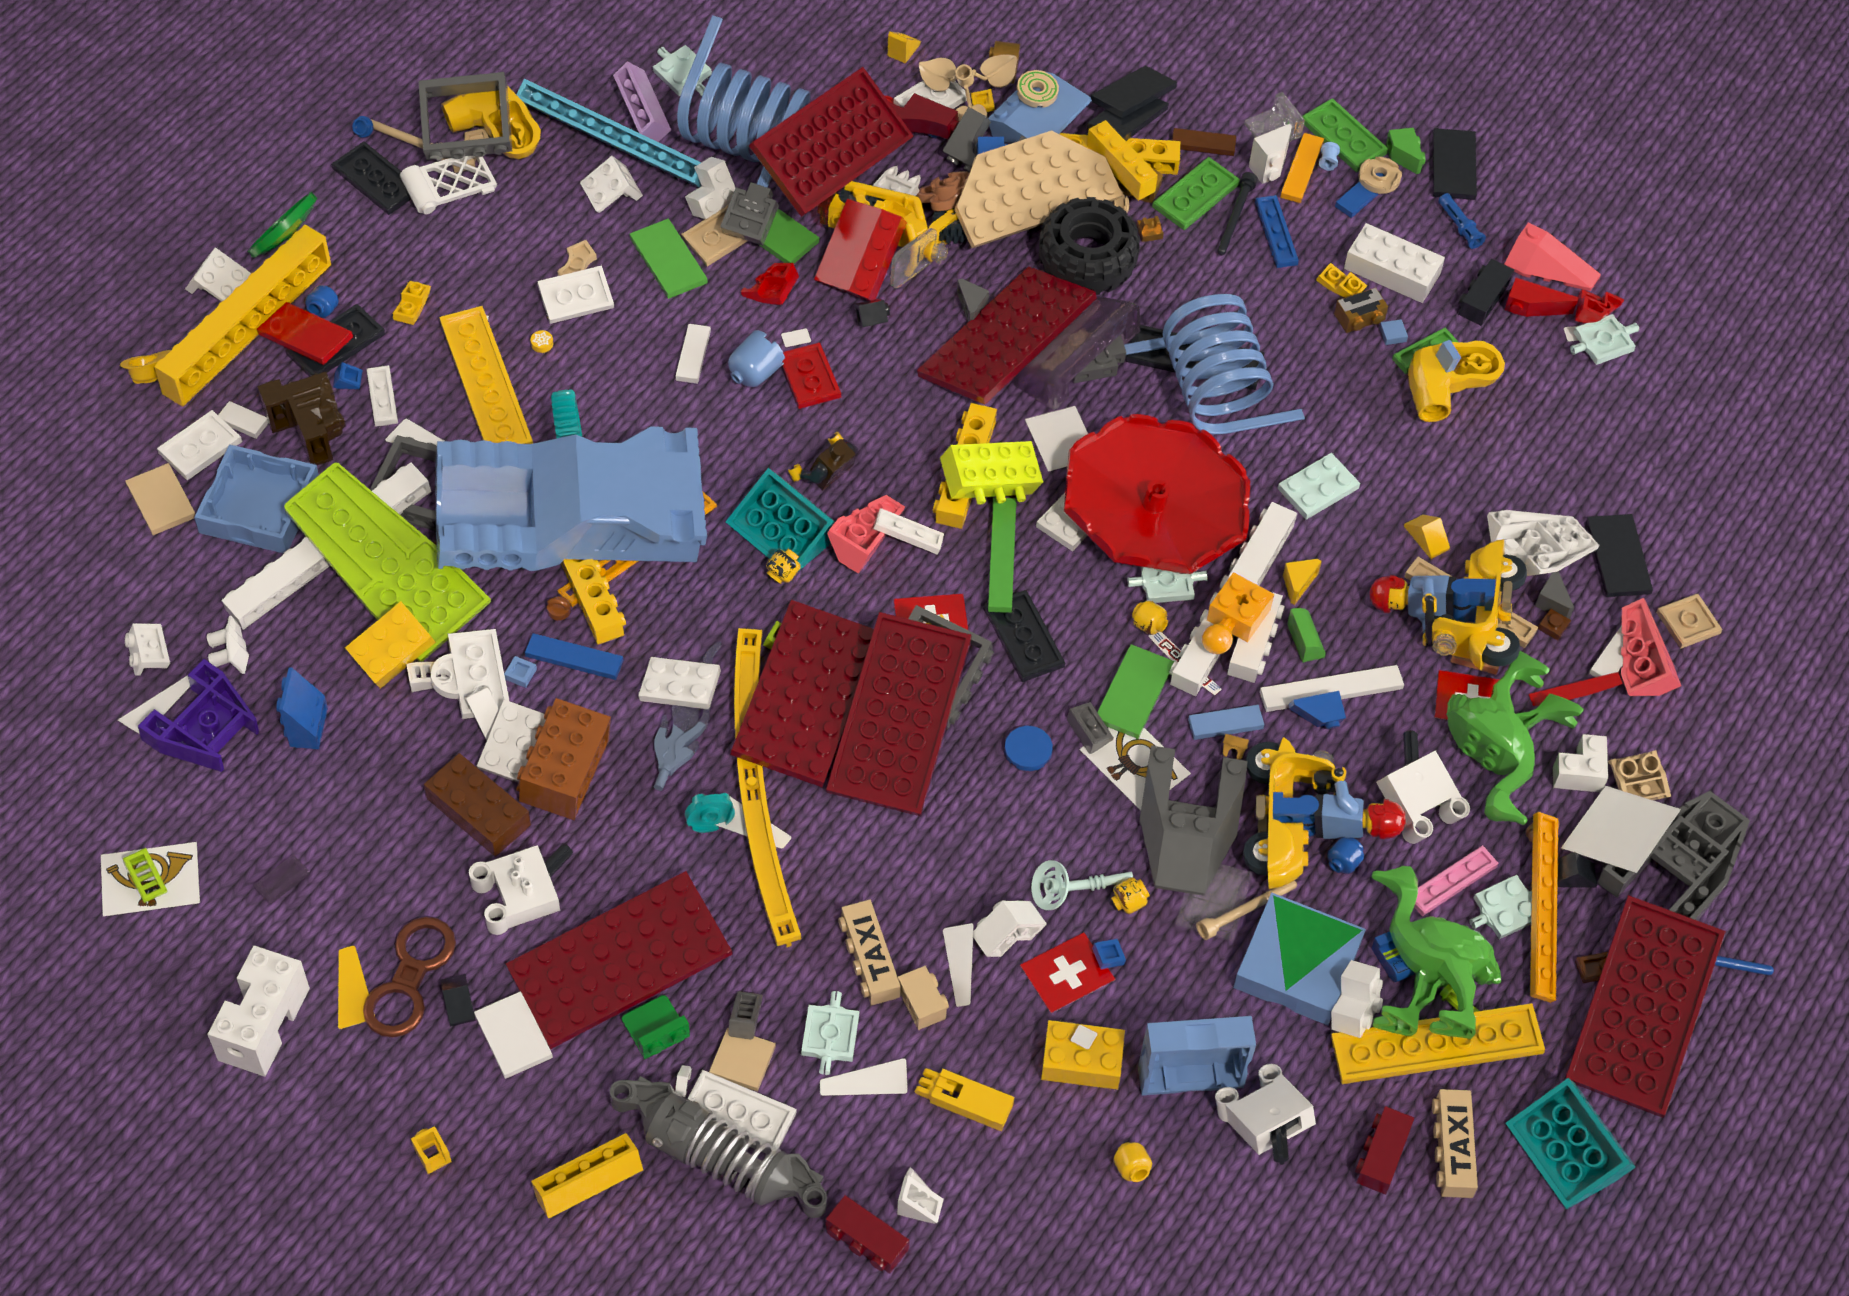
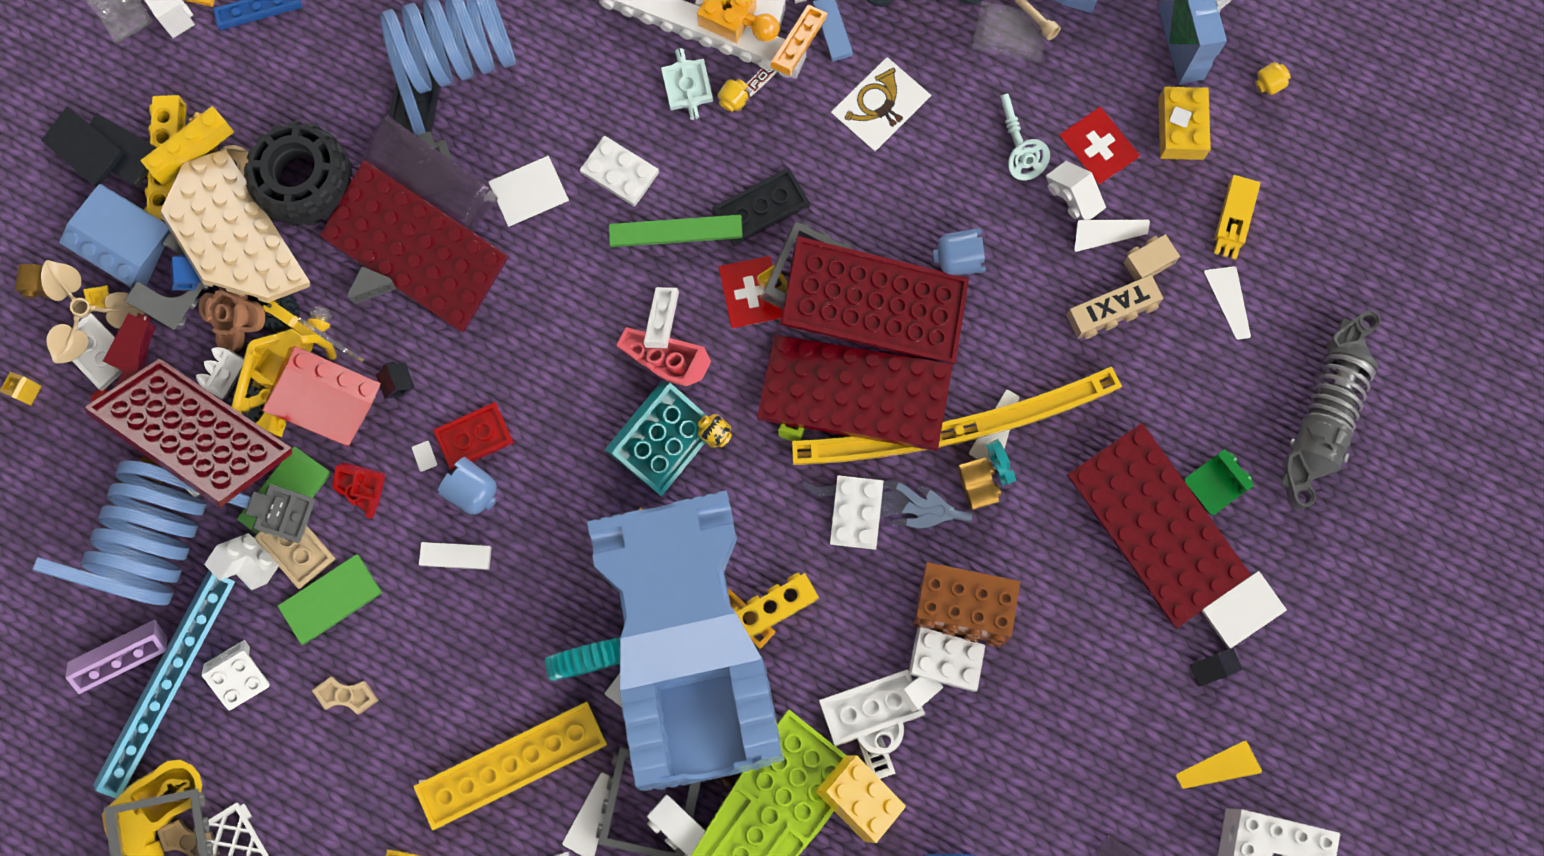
camera: 90 degrees left, 20 degrees up
(409, 977) = (1202, 715): copper bar -> none
(425, 1139) = (1374, 656): yellow window -> none
(477, 804) = (1019, 682): reddish brown brick -> none
(520, 671) = (860, 669): medium blue tile -> none
(522, 884) = (1096, 625): white piece -> none
(541, 341) = (451, 715): yellow tile -> none
(558, 608) = (782, 643): dark orange tile -> none
(574, 656) = (836, 619): blue tile -> none
(575, 294) = (390, 688): white plate -> none
(587, 1175) = (1374, 519): yellow brick -> none
(676, 67) = (62, 622): light aqua plate -> none
(682, 790) = (978, 483): none -> pearl gold brick
(682, 1079) = (1264, 452): white tile -> none
(743, 1016) = (1211, 412): flat silver slope -> none
(743, 1060) = (1232, 405): tan tile -> none
(744, 1108) = (1281, 402): white tile -> none
(829, 464) = (590, 397): torso -> none
(830, 1033) = (1197, 333): light aqua plate -> none
(867, 1235) = (1378, 281): dark red brick -> none
(918, 1200) = (1334, 246): white slope -> none
(947, 807) = (961, 252): none -> medium blue cylinder
(977, 429) = (521, 258): yellow brick -> none
(991, 470) = (592, 242): neon yellow piece -> none
(1028, 748) = (882, 193): blue tile -> none
(1037, 79) = (91, 222): tan tile -> none
(1089, 727) = (856, 141): flat silver slope -> none
(1109, 954) = (1082, 109): blue plate -> none
(1130, 895) = (1024, 95): yellow head -> none
(1134, 691) = (810, 107): bright green tile -> none
(1150, 229) = (261, 123): pearl gold tile -> none
(1157, 493) = (600, 92): red piece -> none
(1184, 838) = (955, 52): dark grey wedge -> none
(1196, 193) = (212, 83): bright green tile -> none
(1205, 141) = (143, 79): reddish brown tile -> none
(1206, 676) = (798, 40): none -> light orange tile
(1234, 742) = (856, 18): pearl gold tile -> none
(1247, 183) = (197, 35): black piece -> none

